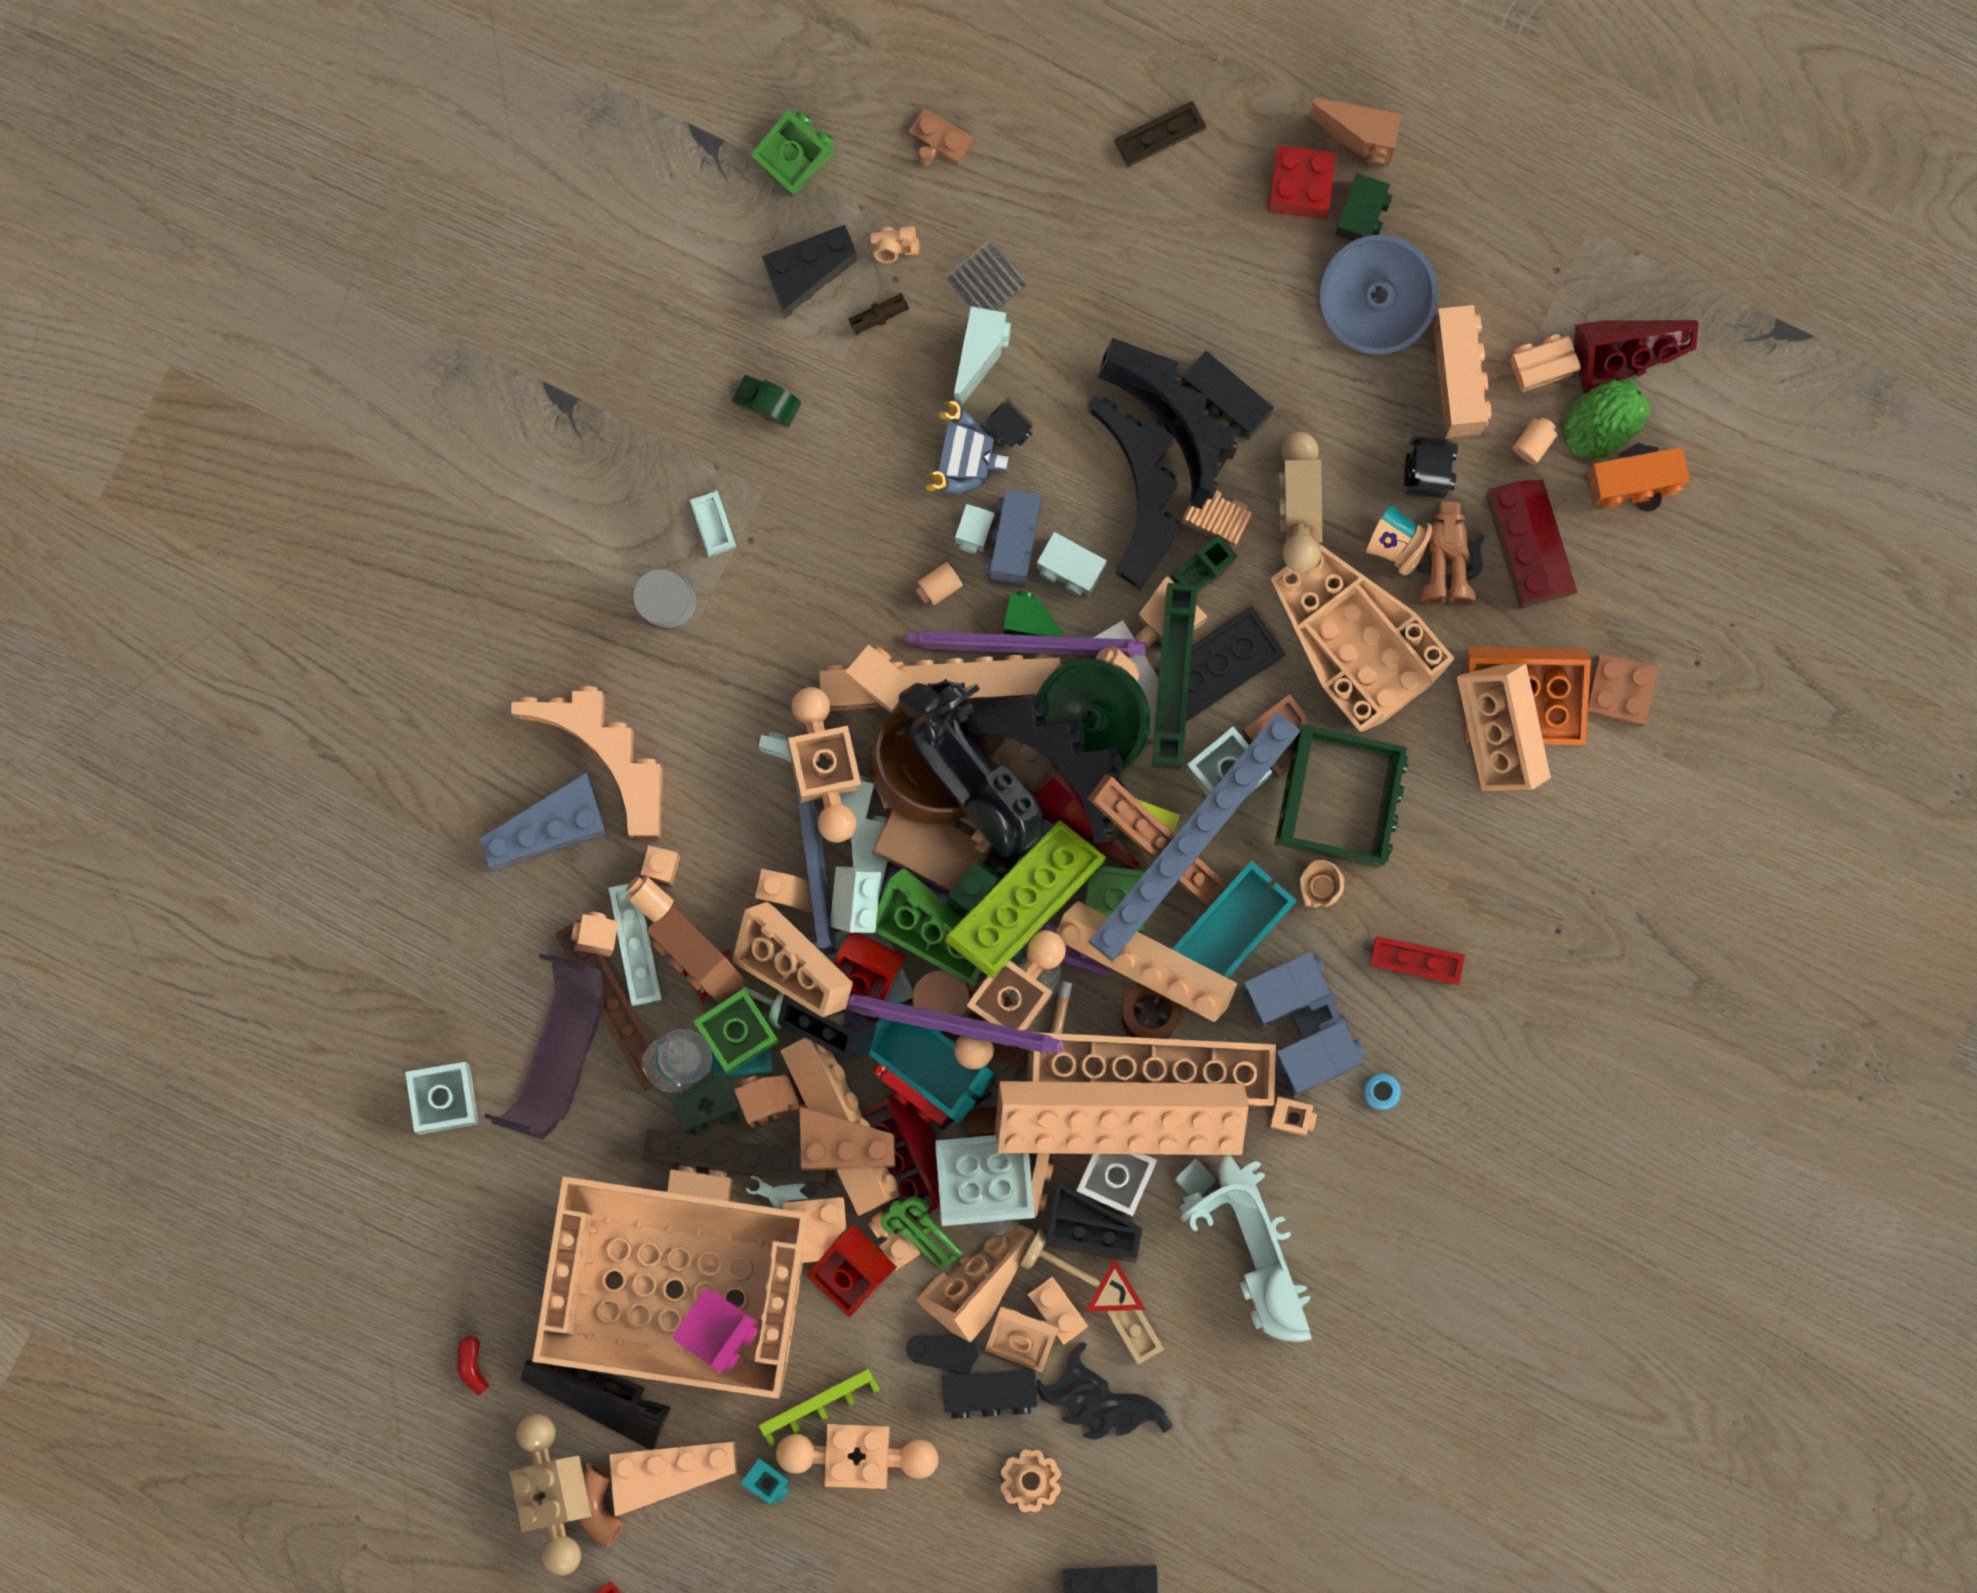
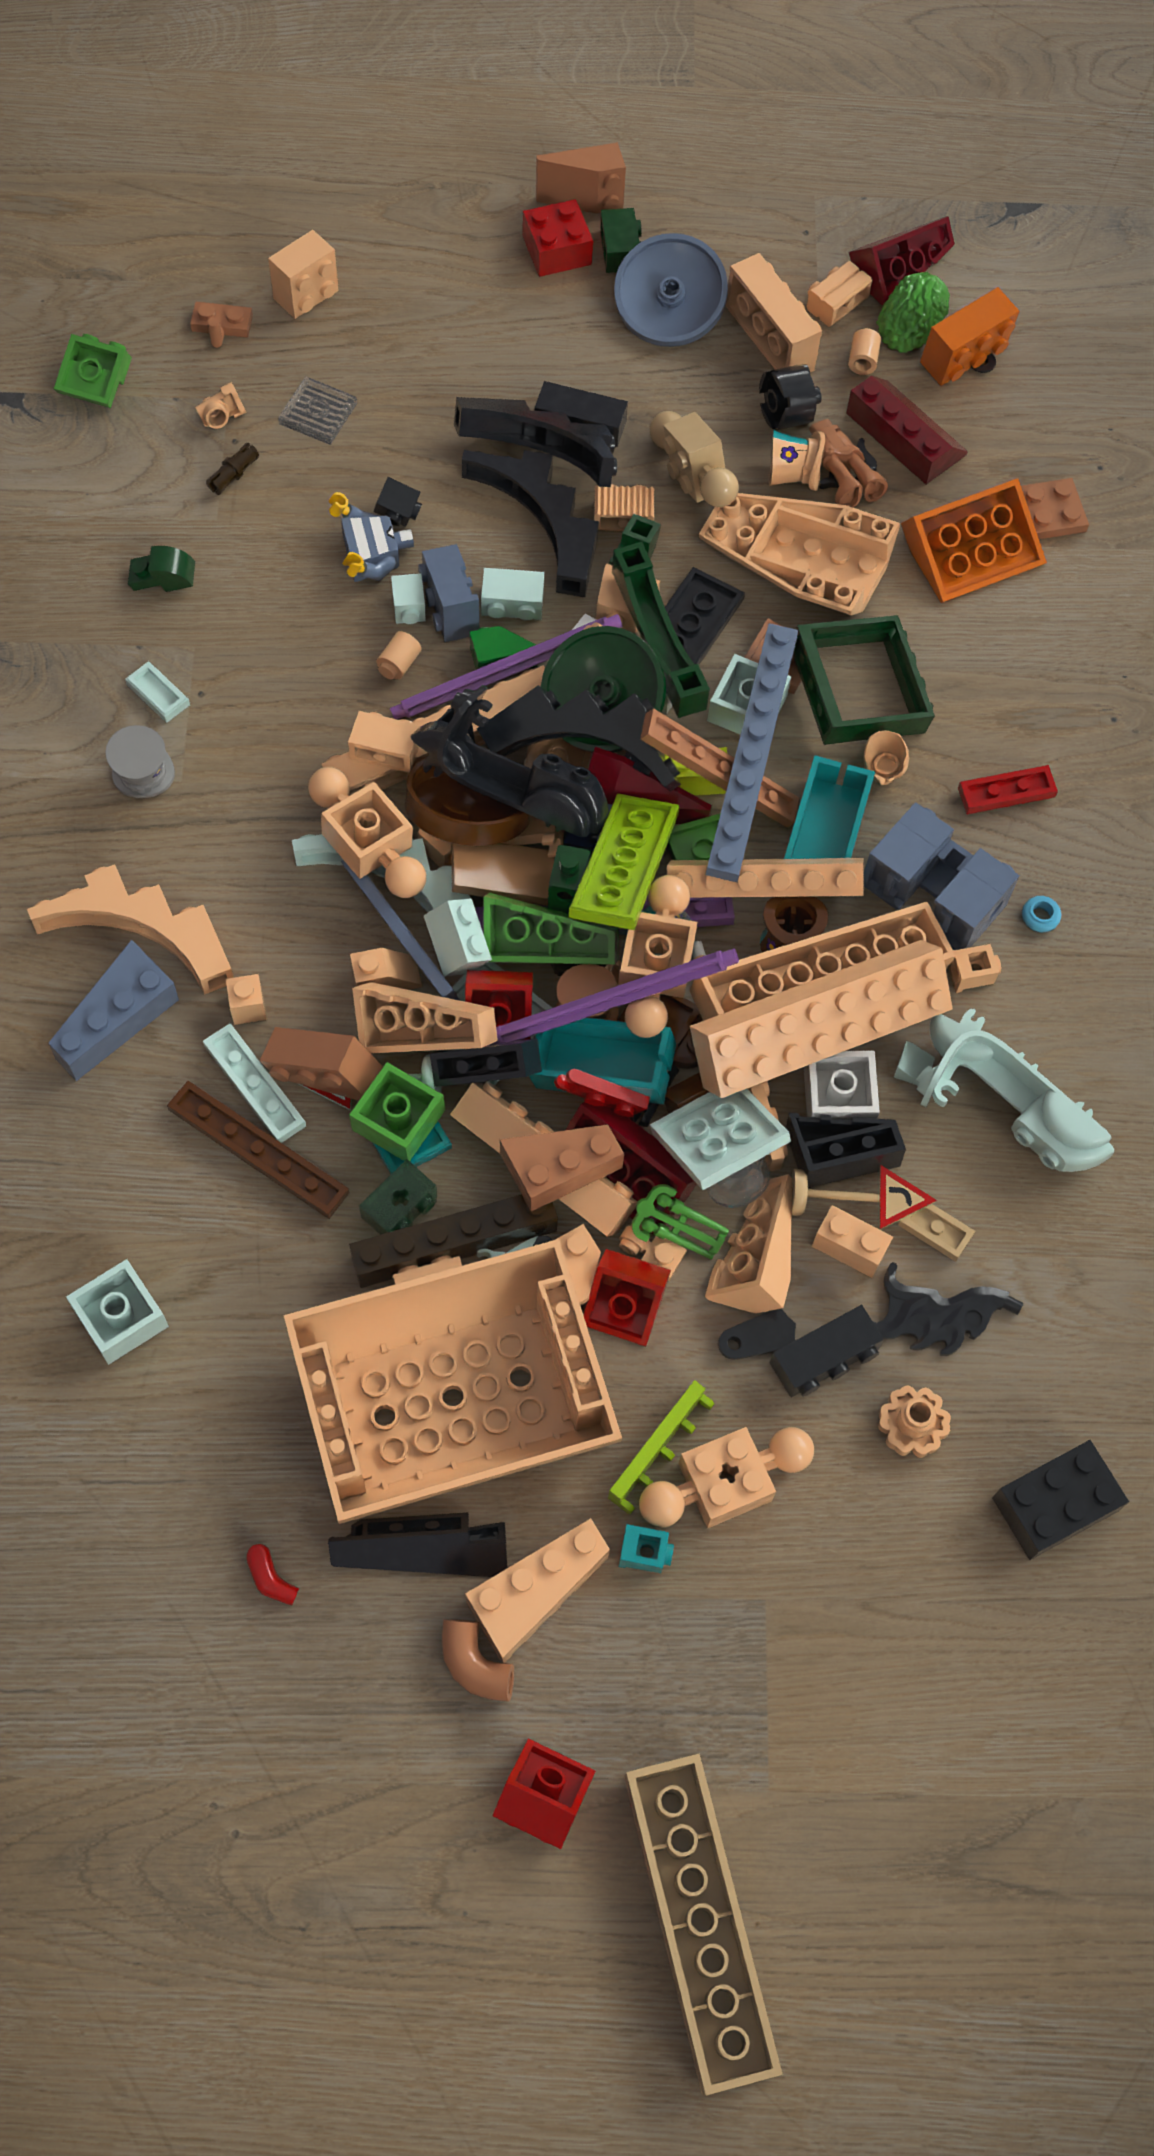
camera: 30 degrees left, 15 degrees down
(549, 1494) = (419, 1668): tan brick -> none
(560, 1050) = (221, 1203): windscreen -> none
(595, 934) = (209, 1084): light nougat brick -> none
(649, 898) = (248, 1028): light nougat brick -> none
(677, 1060) = (350, 1162): clear hat -> none
(715, 1331) = (523, 1395): dark pink bracket -> none
(768, 1099) = (457, 1165): nougat wedge -> none
(807, 266) = (148, 451): black wedge -> none
(982, 347) = (341, 446): light aqua slope -> none
(1021, 1339) = (832, 1281): light nougat plate -> none
(1035, 129) = (303, 274): none -> light nougat brick
(1160, 134) = (414, 252): dark brown tile -> none
(1504, 728) = (973, 564): light nougat slope -> none

